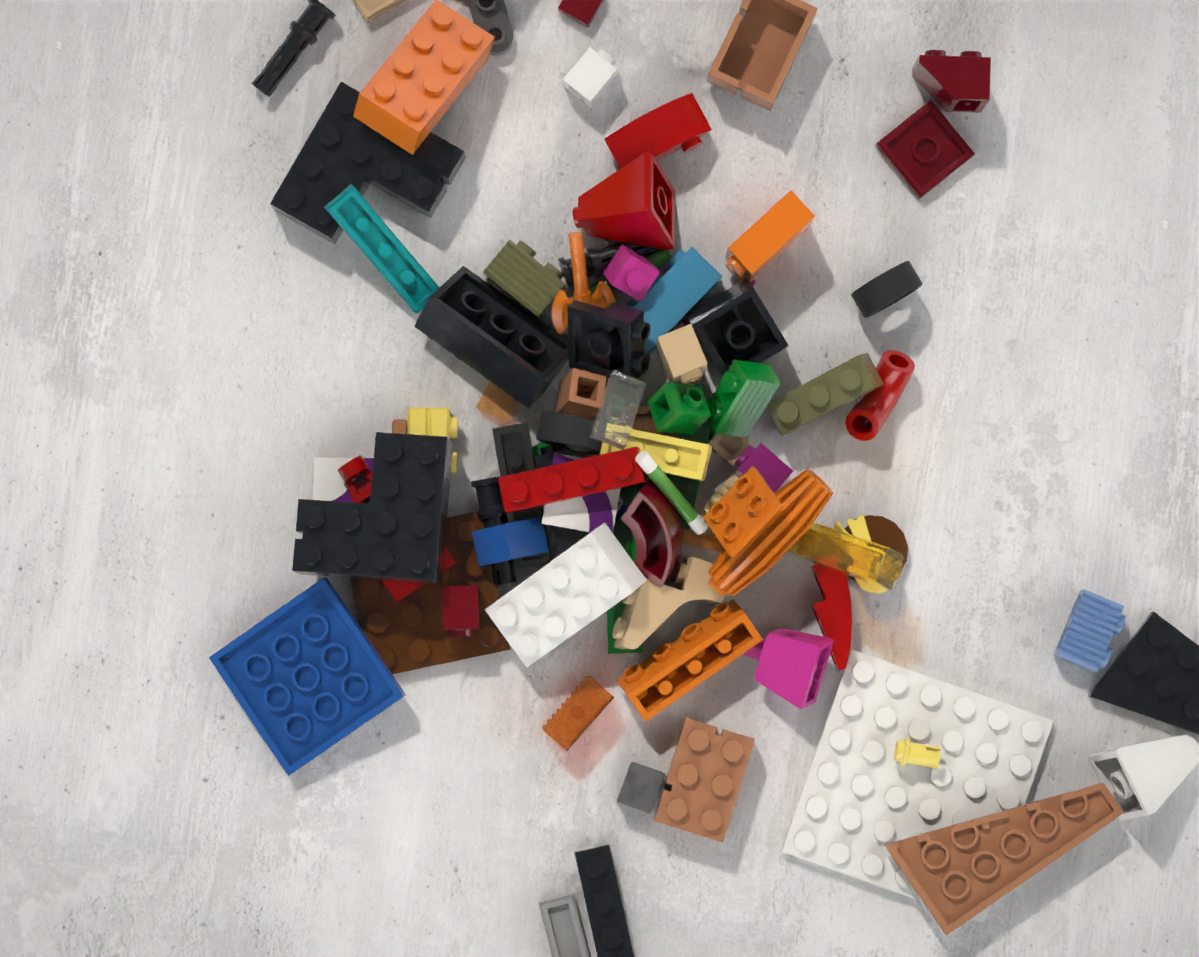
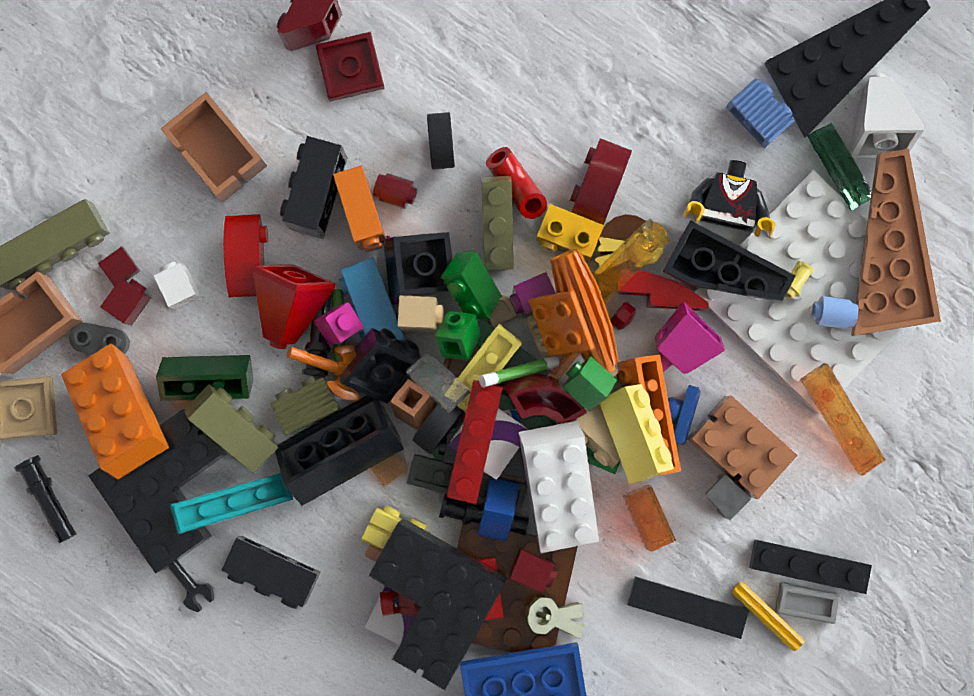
camera: 65 degrees left, 0 degrees up
(269, 249) = (191, 587): none -> black bar
(326, 327) = (270, 572): none -> black brick
(419, 644) = (544, 615): none -> piece
(464, 211) = (231, 427): none -> olive brick
(499, 802) = (688, 607): none -> black tile
(504, 156) = (188, 376): none -> dark green brick
(530, 895) = (767, 616): none -> yellow axle
(548, 29) = (126, 301): none -> dark red brick
(662, 650) = (636, 434): none -> light yellow brick
(693, 573) = (589, 383): none -> green brick
(710, 698) = (683, 413): none -> blue tile
(768, 174) = (313, 187): none -> black brick
(787, 582) = (623, 316): none -> dark red tile
(787, 878) = (842, 419): none -> clear orange tile
(808, 265) = (395, 190): none -> dark red brick
(851, 479) = (568, 232): none -> yellow brick
(892, 657) = (720, 265): none -> black wedge
(900, 813) = (835, 312): none -> light blue brick
(926, 487) = (601, 181): none -> dark red brick
(972, 642) = (731, 202): none -> torso
(1072, 748) = (840, 166): none -> clear green plate

